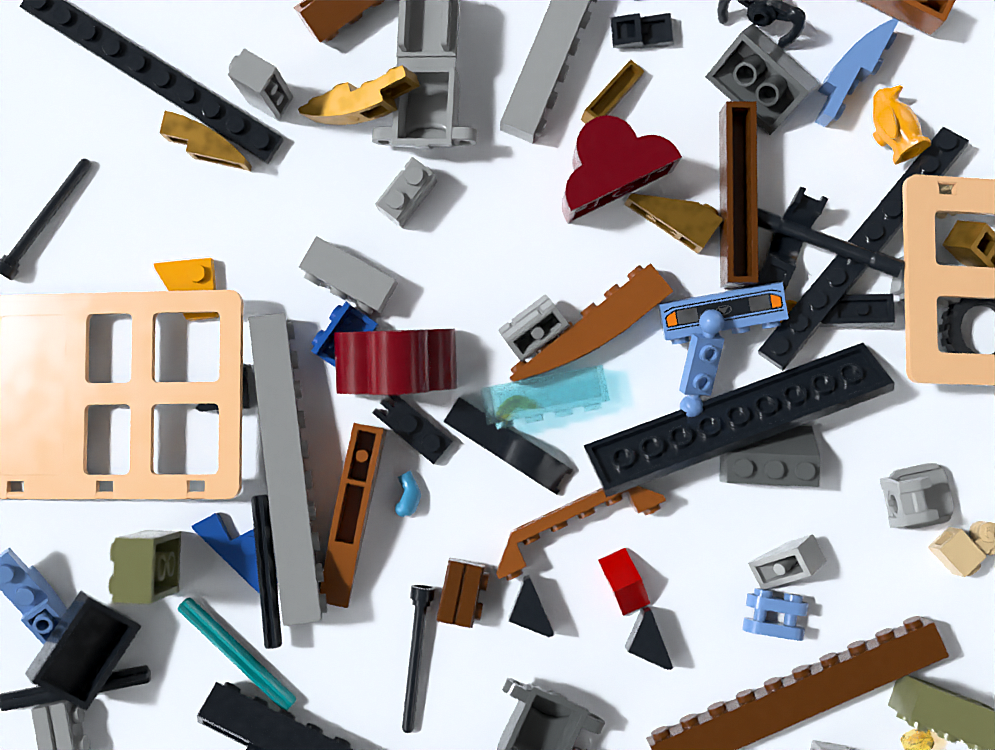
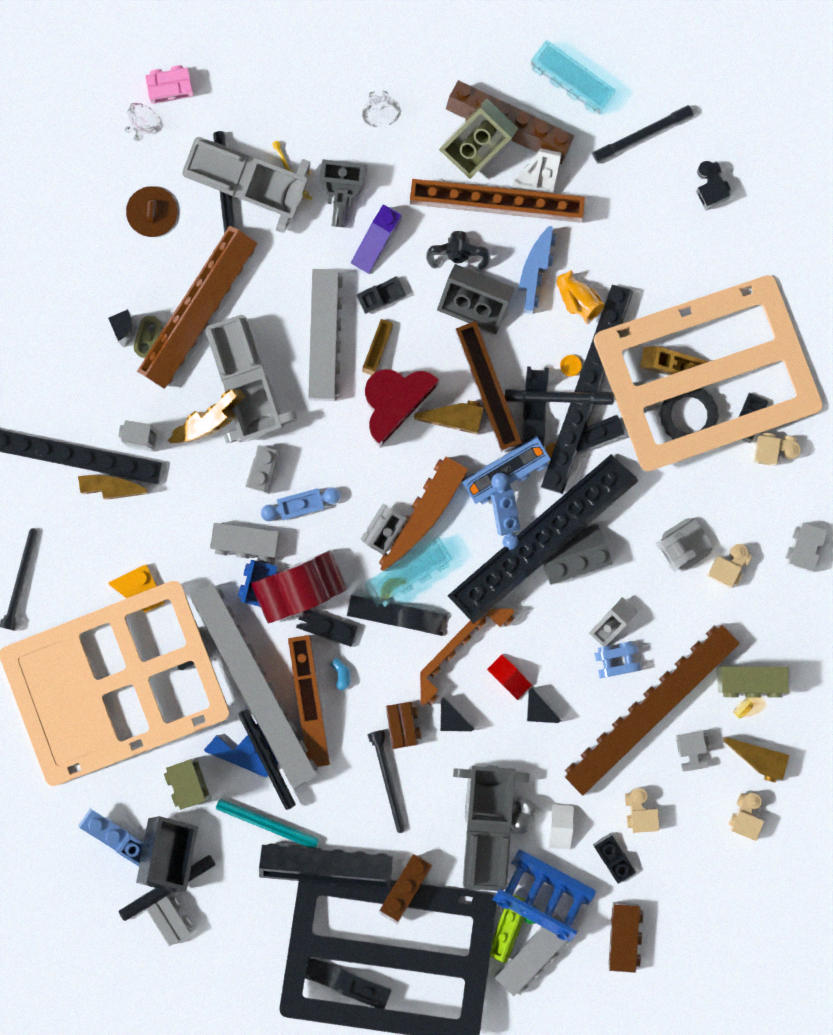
camera: 15 degrees left, 0 degrees up
(438, 256) = (300, 504): none -> medium blue plate
(850, 210) = (570, 365): none -> light orange piece

